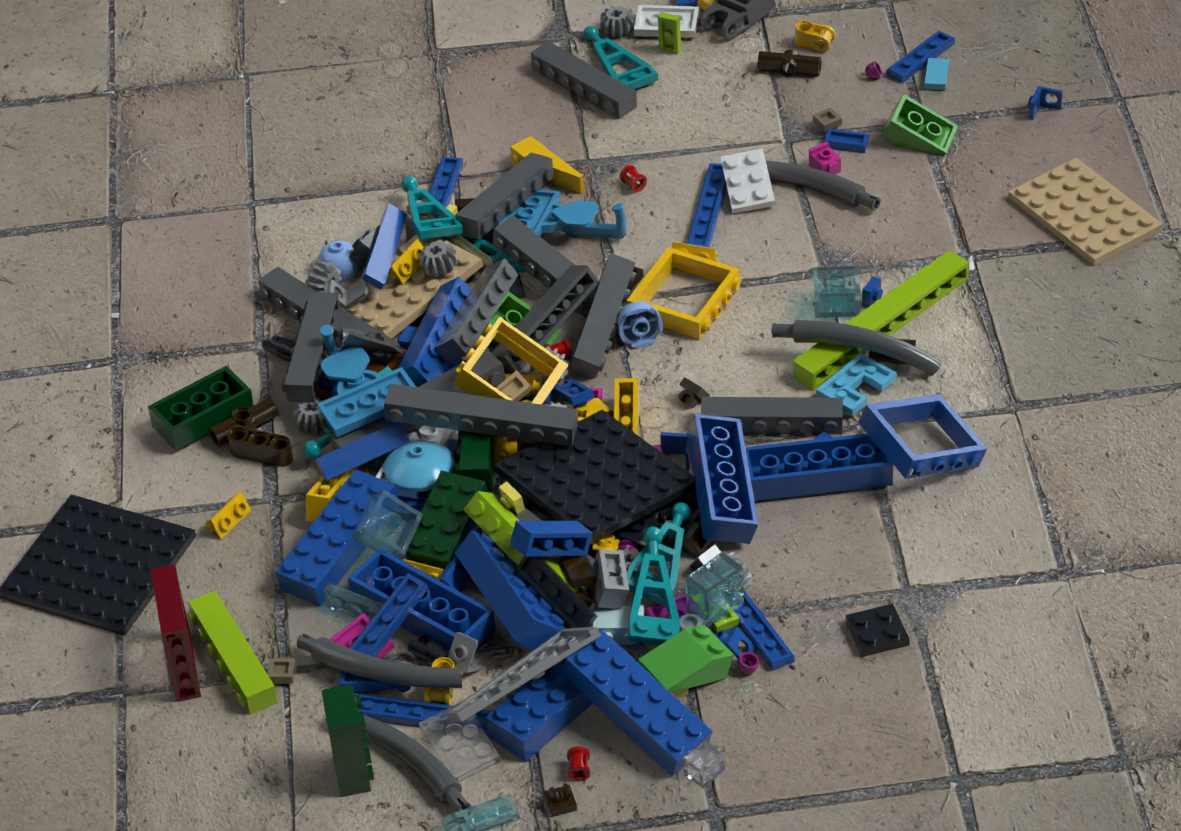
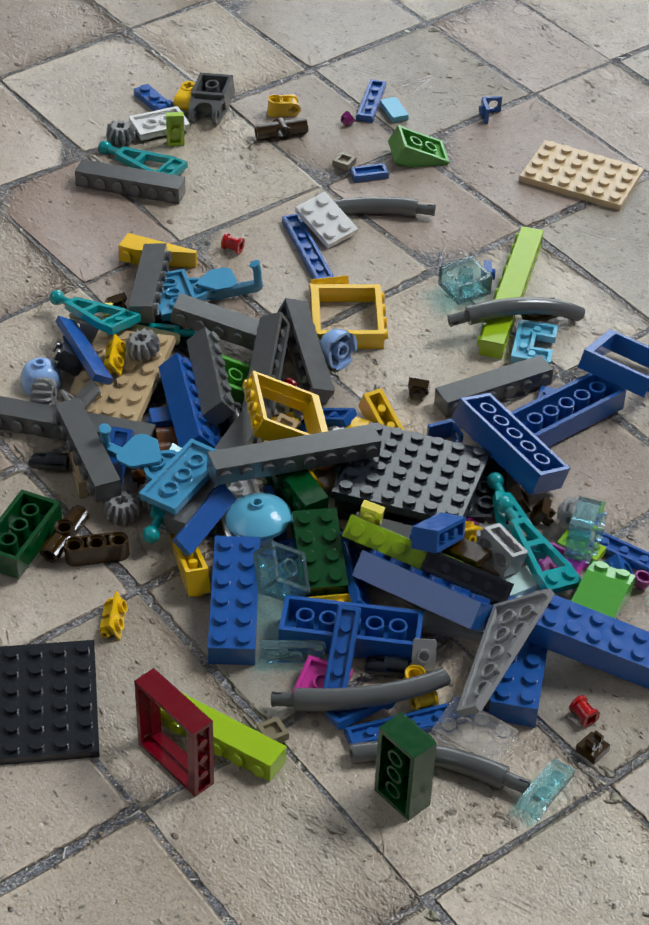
camera: 35 degrees left, 0 degrees up
(355, 337) = (144, 425): dark grey panel -> none
(445, 180) = (75, 283): blue tile -> none
(690, 621) = (580, 564): light grey tile -> none
(824, 158) = (368, 188): dark pink brick -> none

